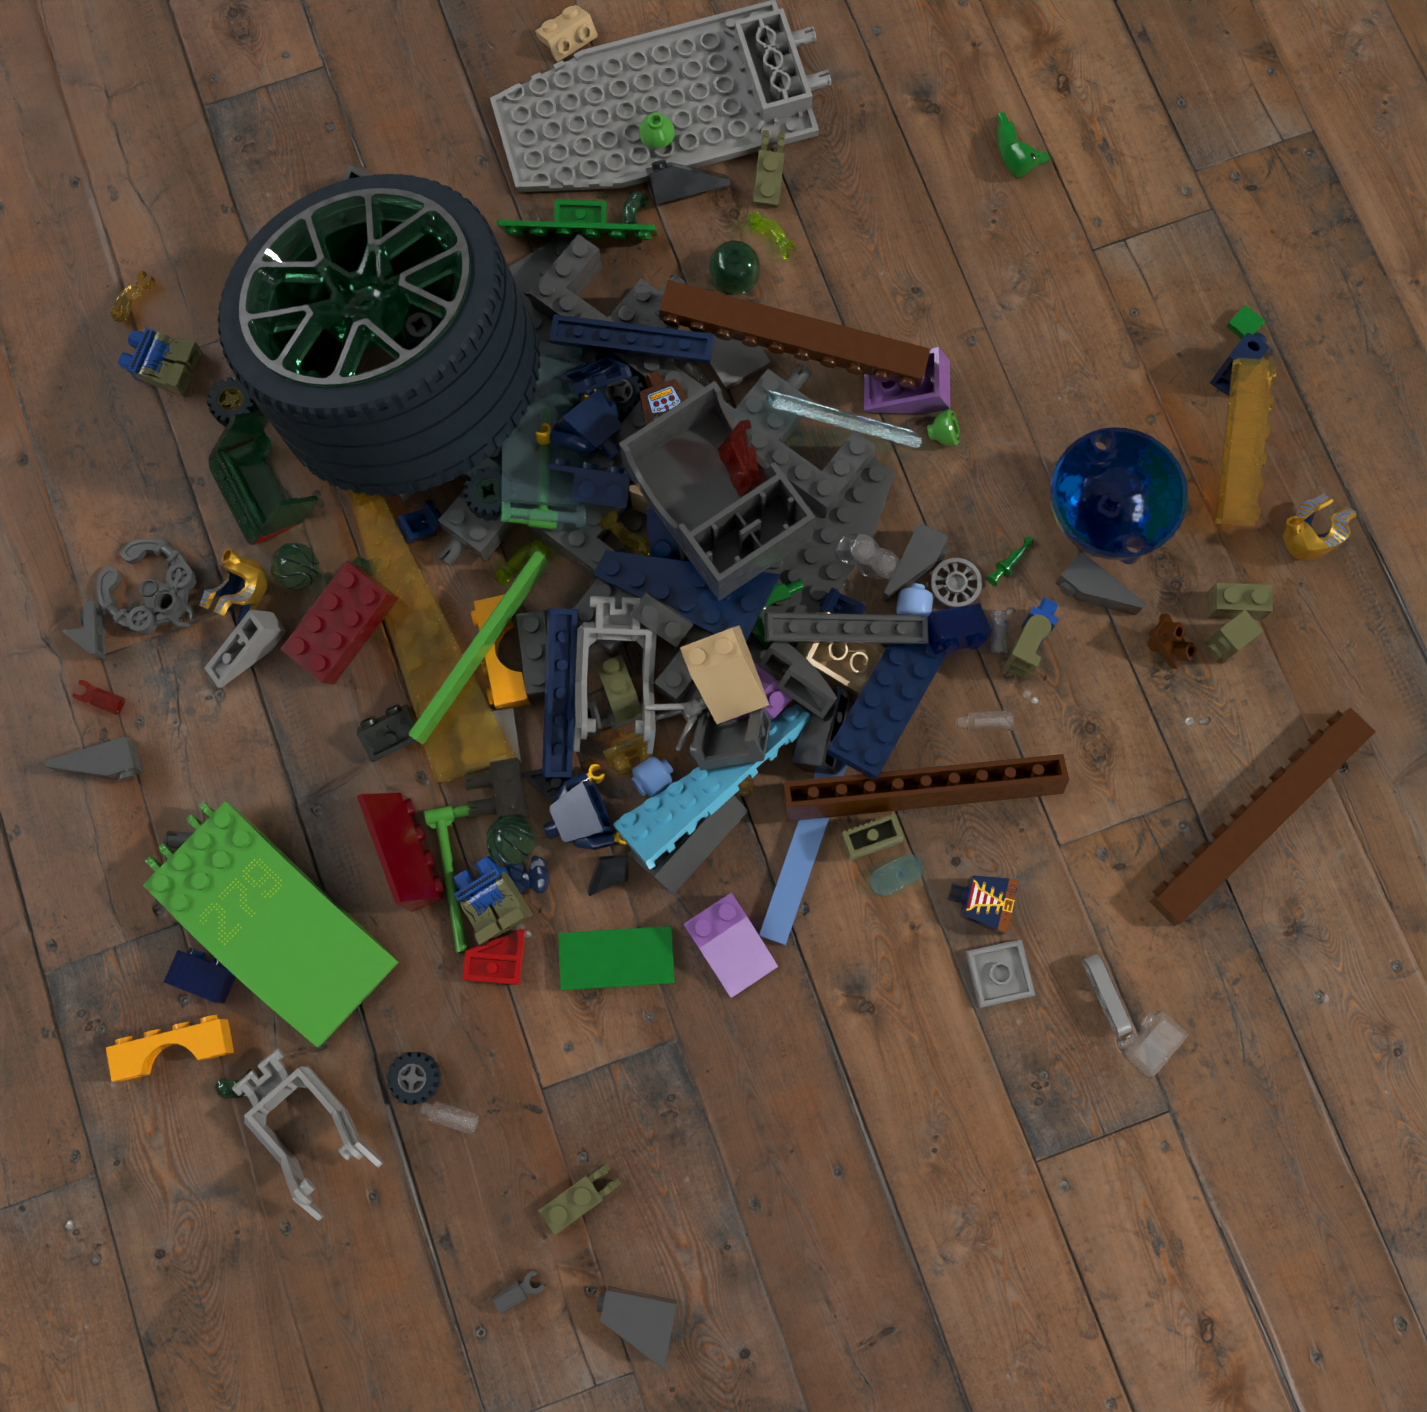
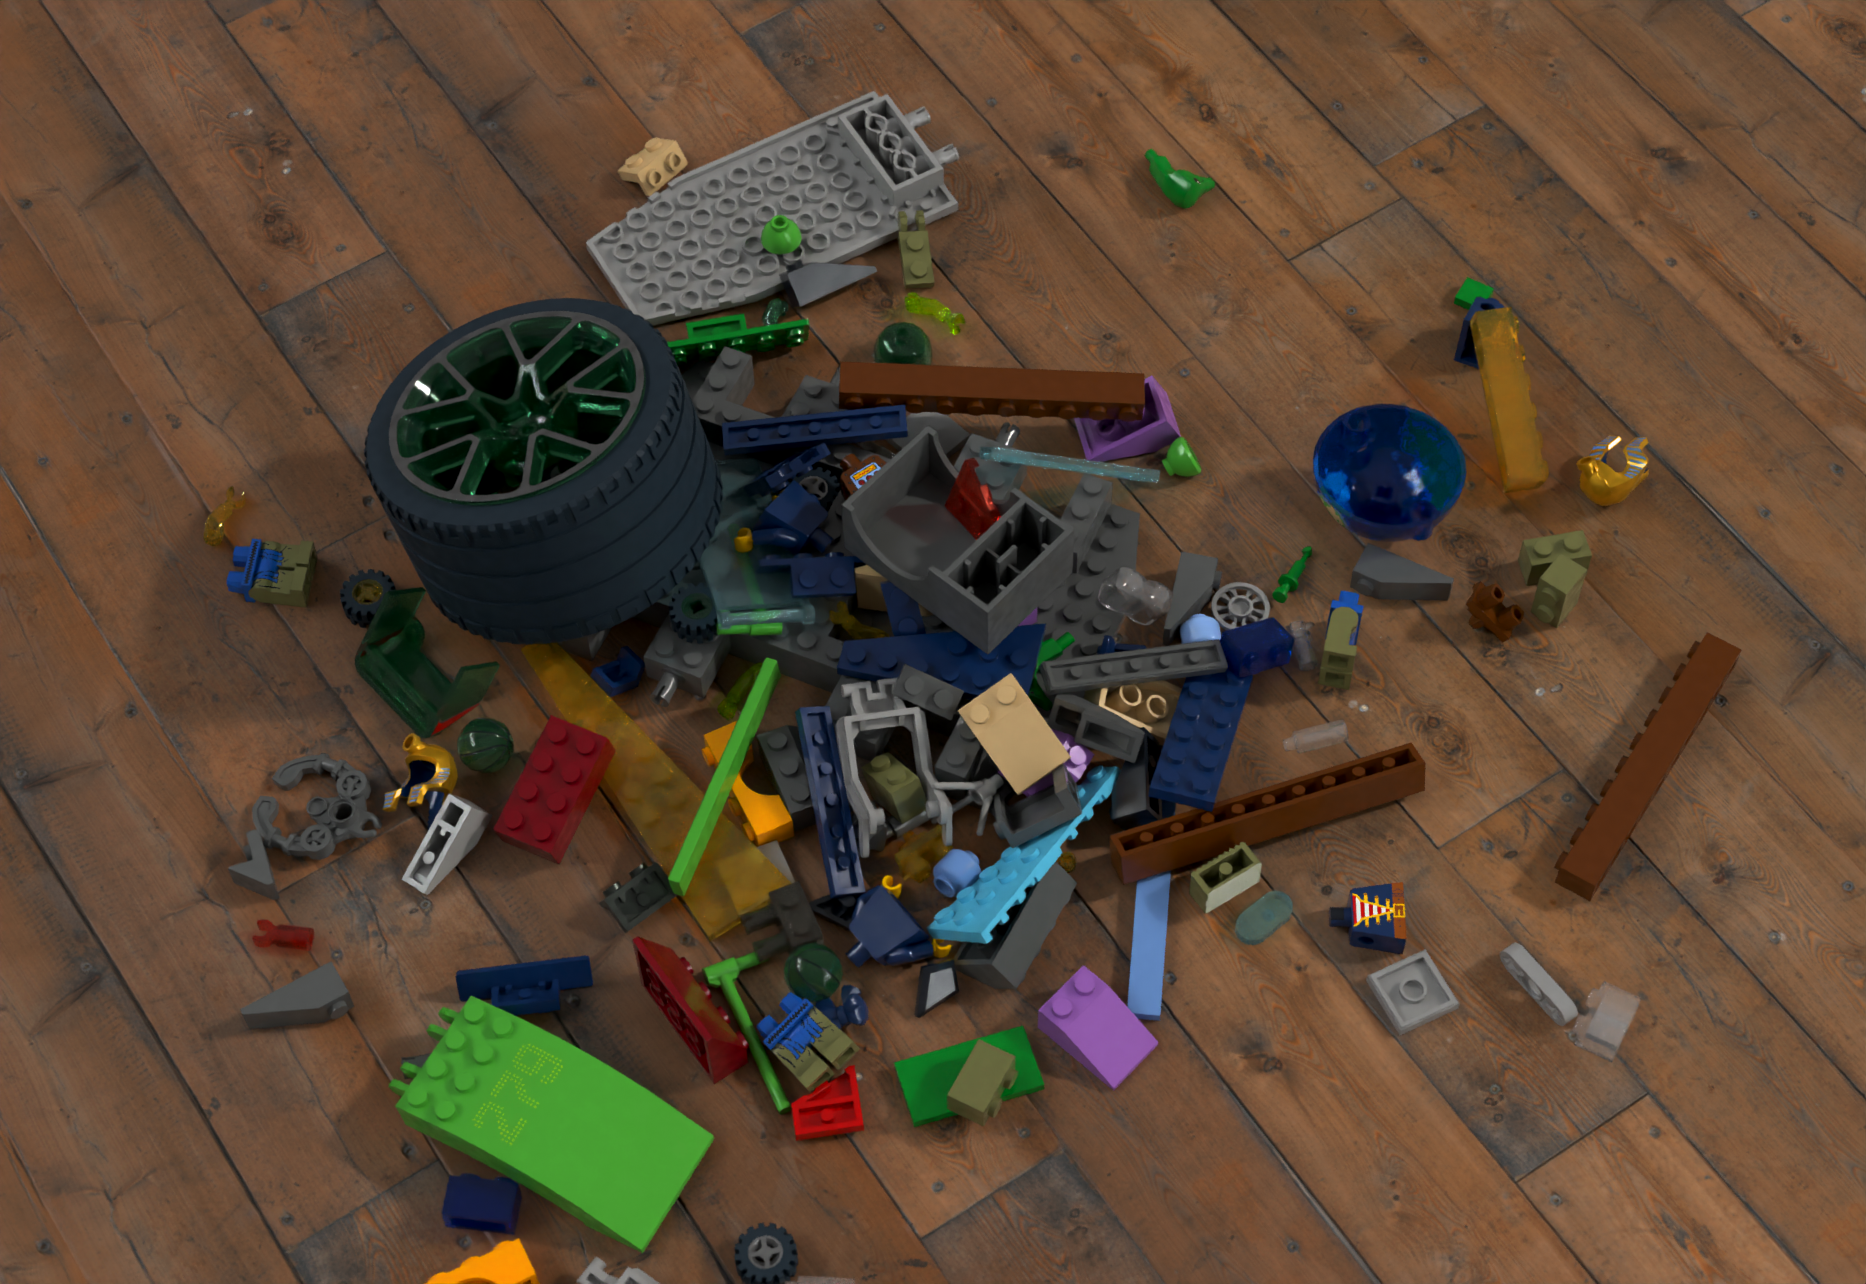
camera: 15 degrees left, 20 degrees down
(278, 794) = (525, 986): none -> dark blue bracket
(621, 975) = (981, 1083): none -> olive piece

